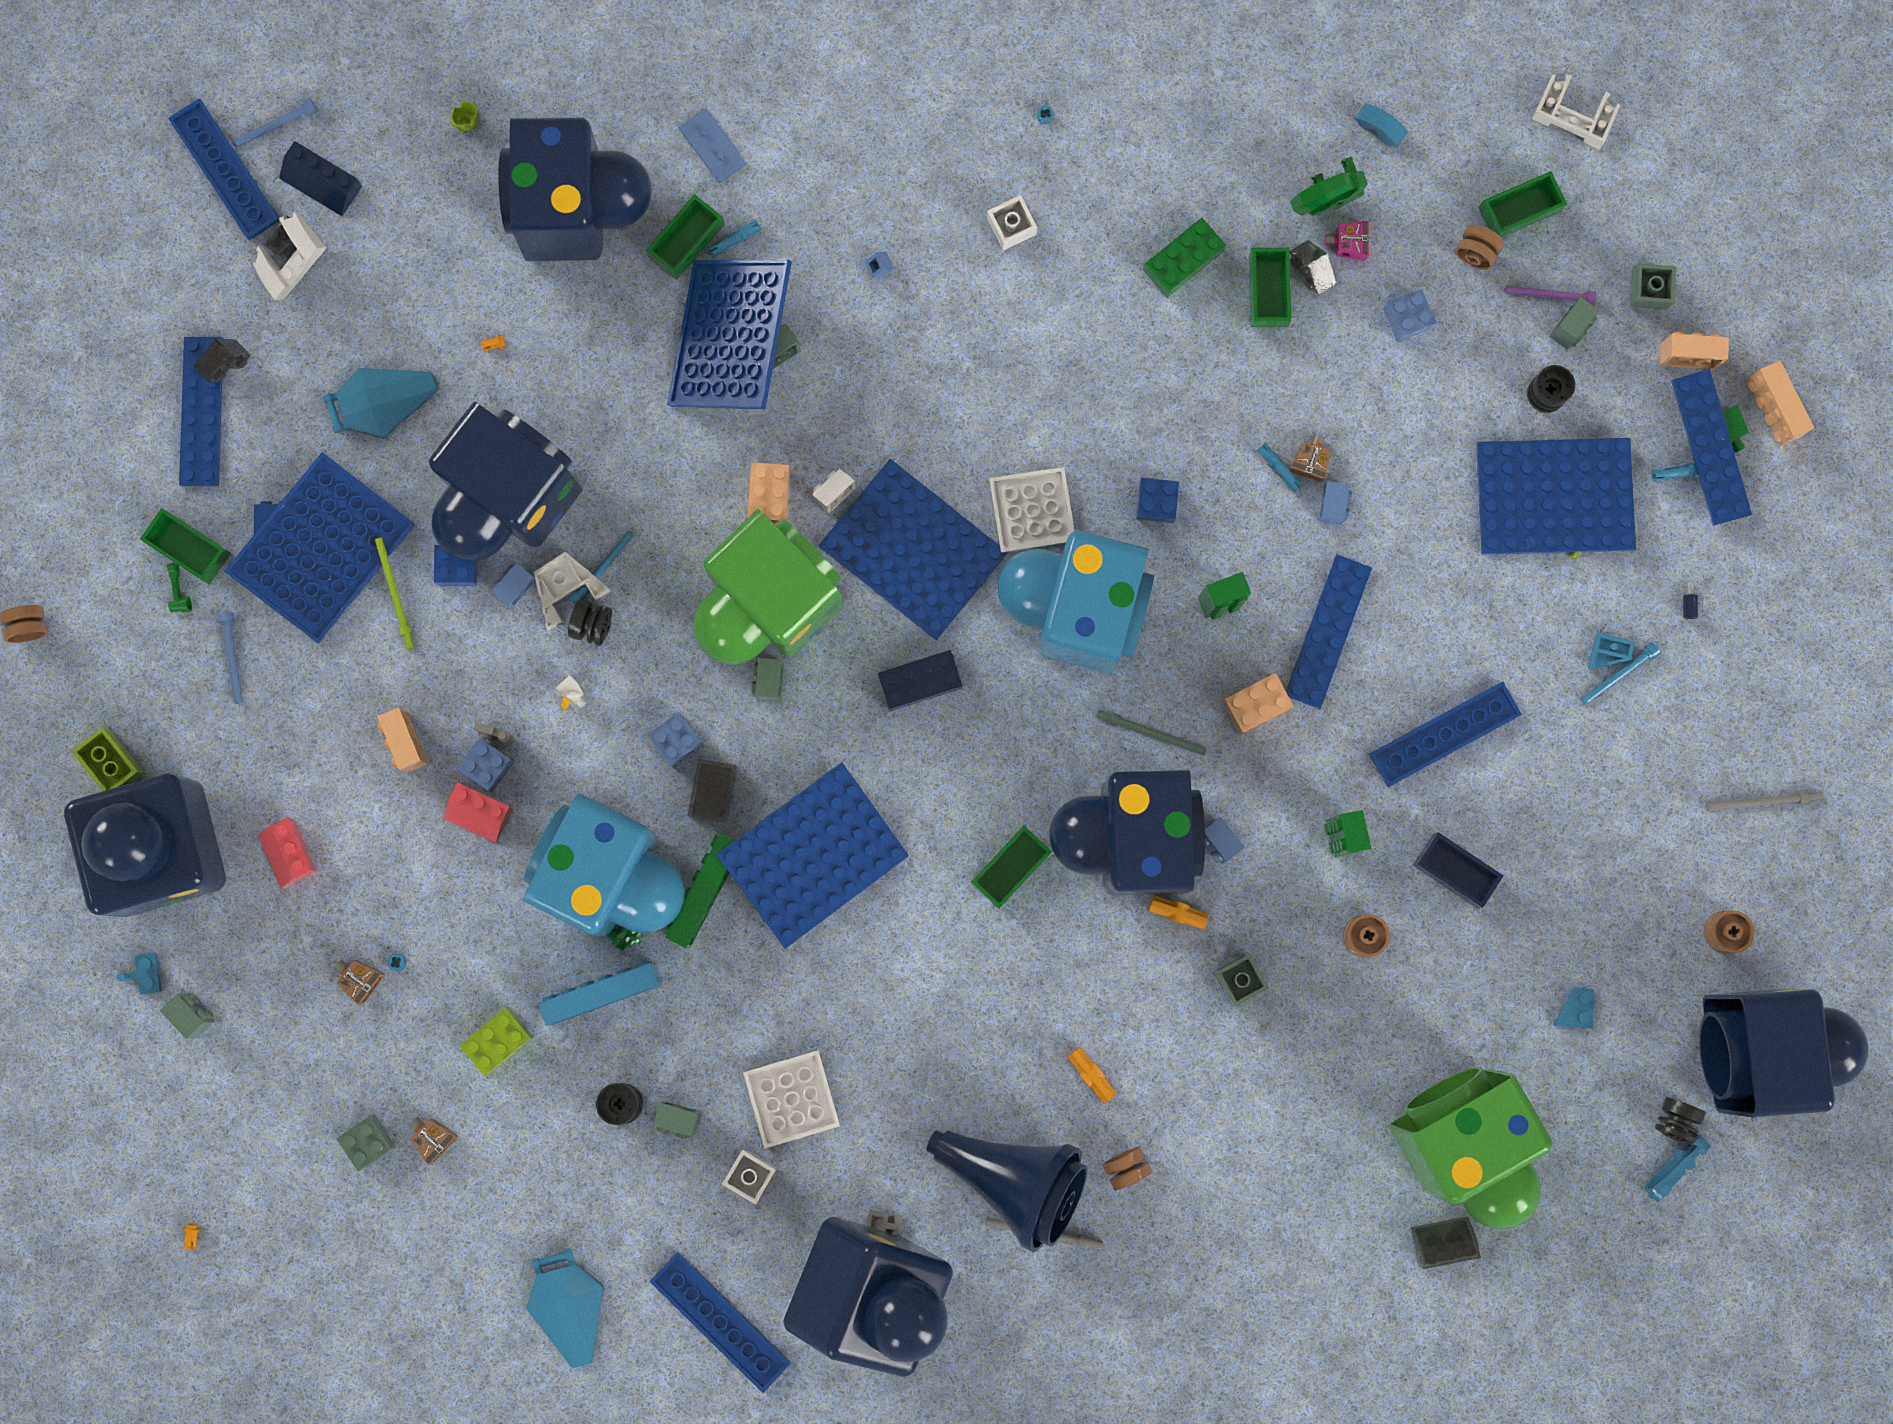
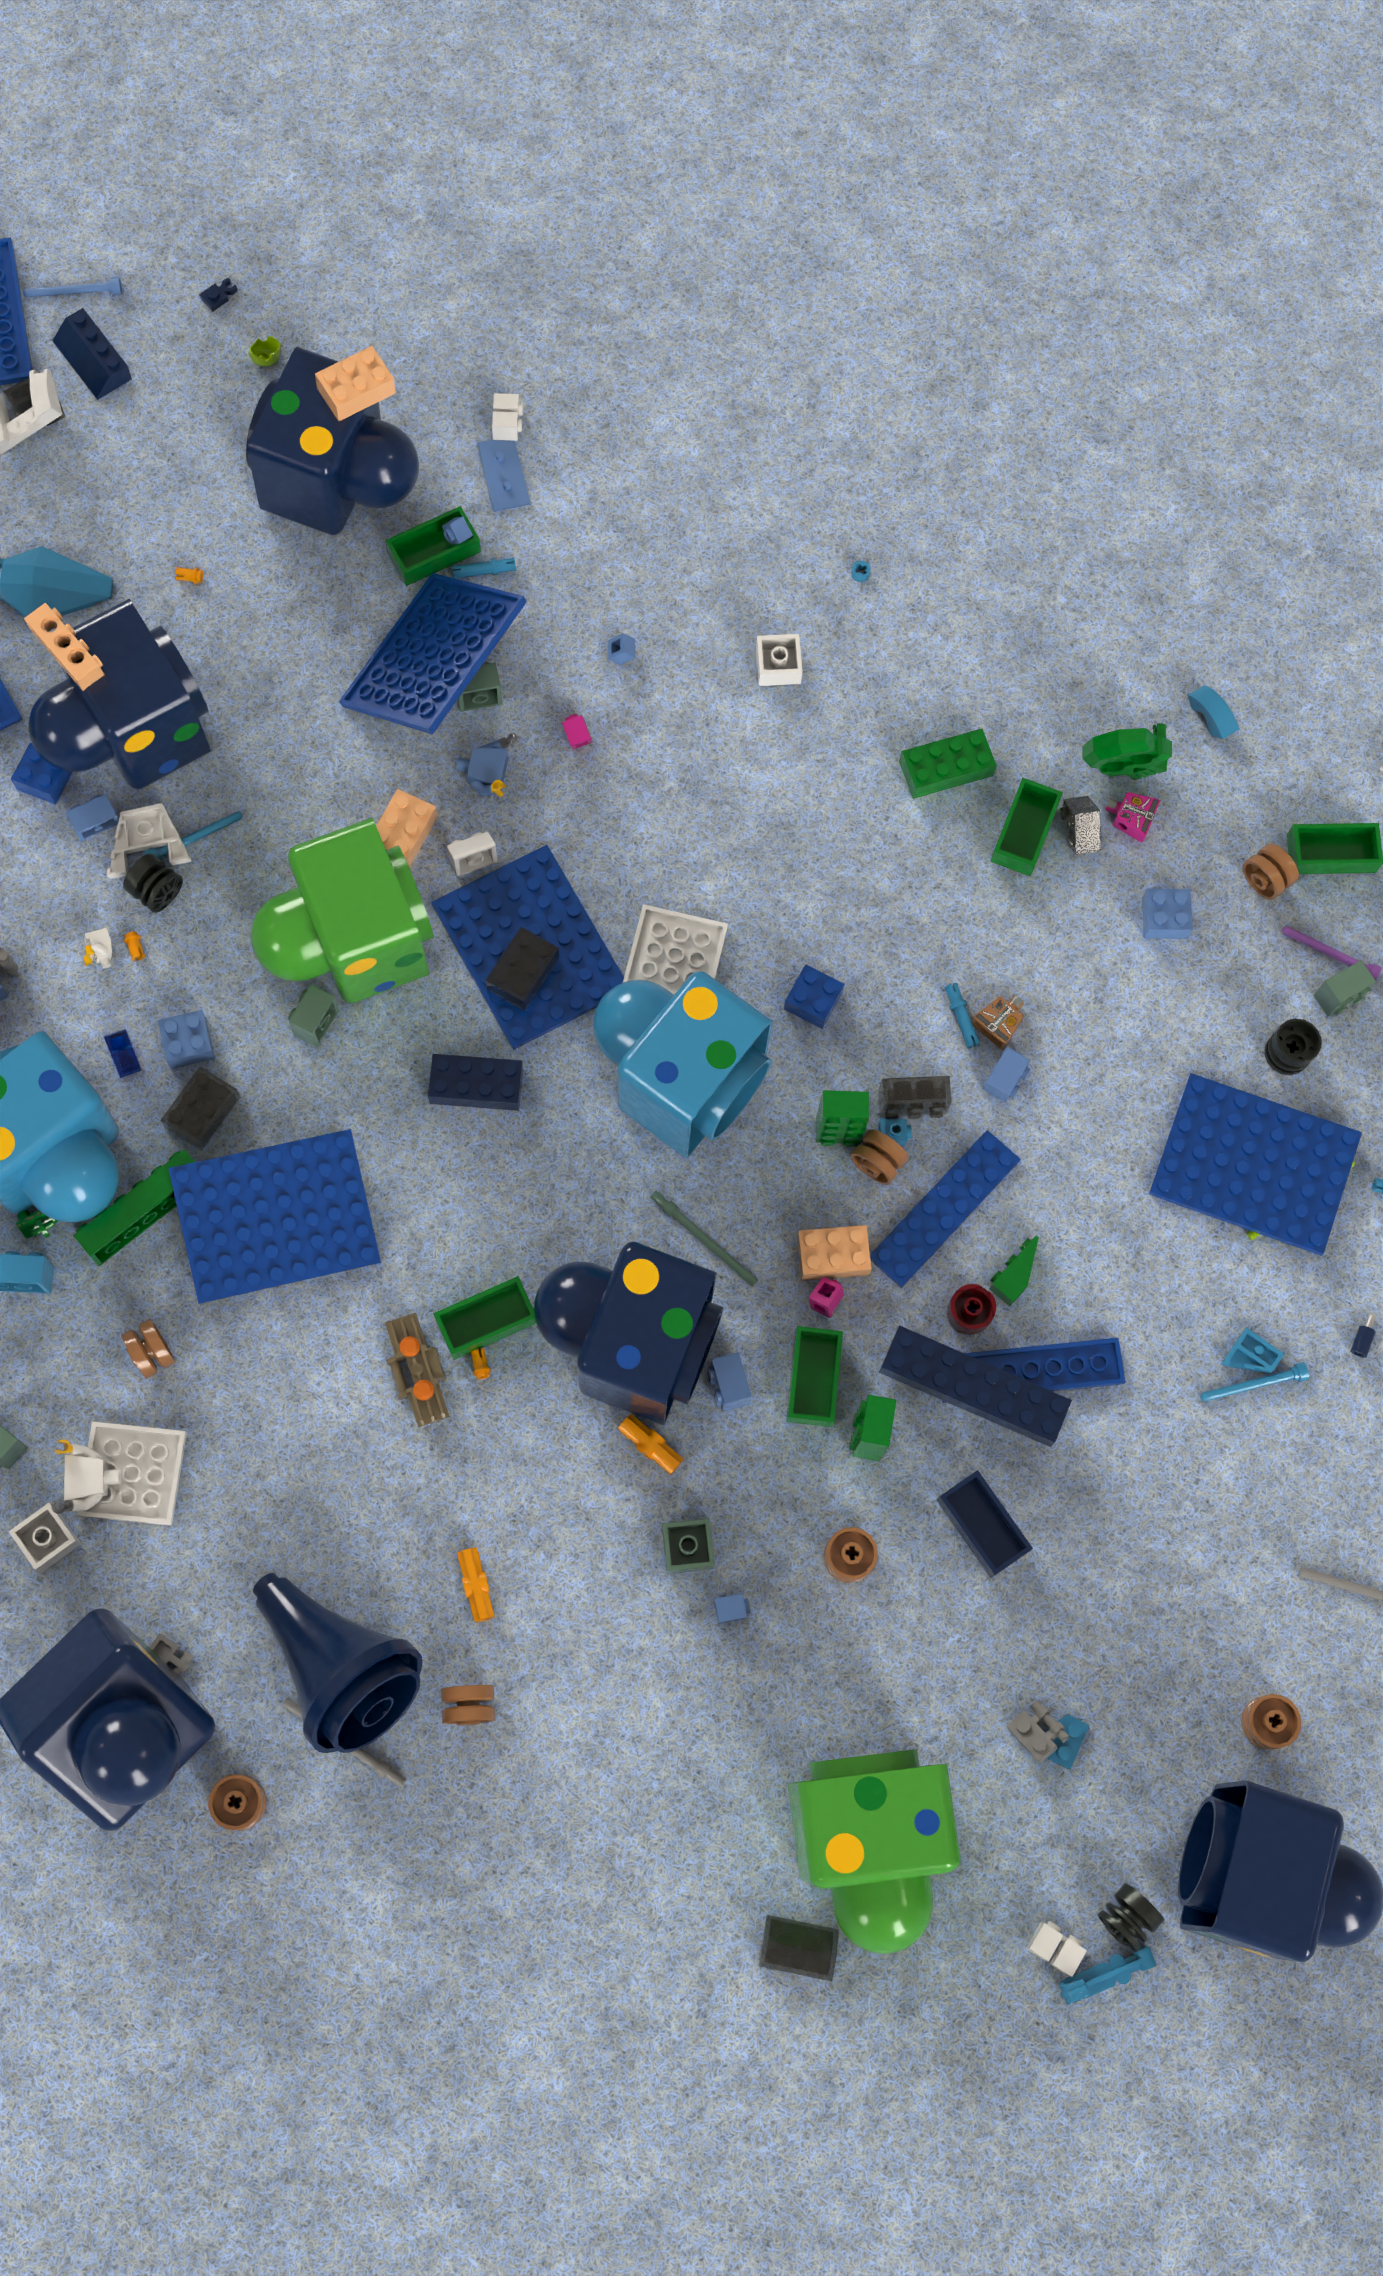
camera: 20 degrees right, 10 degrees down
(398, 80) = (217, 296): none -> dark blue plate
(415, 455) = (45, 619): none -> light nougat brick
(577, 135) = (355, 383): none -> light nougat brick
(597, 679) = (132, 940): none -> light orange pin
(631, 772) = (123, 1053): none -> clear blue slope
(694, 95) = (506, 417): none -> white piece
(701, 217) = (456, 530): none -> medium blue plate
(760, 1001) = (144, 1351): none -> medium nougat wheel
(760, 1119) = (84, 1478): none -> white torso
(814, 412) = (488, 766): none -> medium blue torso
(873, 352) = (576, 731): none -> dark pink brick
(918, 573) = (522, 968): none -> clear smoke brick
(981, 926) = (424, 1366): none -> dark tan piece
(986, 1322) = (223, 1798): none -> medium nougat wheel
(1021, 904) = (480, 1364): none -> light orange pin
(1260, 591) = (886, 1126): none -> dark azure brick
(1262, 734) = (819, 1297): none -> dark pink brick
(1263, 613) = (879, 1156): none -> medium nougat wheel
(1271, 553) = (914, 1097): none -> clear smoke brick
(1283, 808) = (814, 1376): none -> green piece
(1292, 1013) = (731, 1608): none -> medium blue brick
(1392, 710) = (979, 1299): none -> dark red brick
(1405, 665) = (1015, 1278): none -> green slope
(1410, 766) = (975, 1386): none -> dark blue brick
(1556, 1016) = (1032, 1737): none -> light grey plate
(1633, 1164) = (1067, 1954): none -> white piece

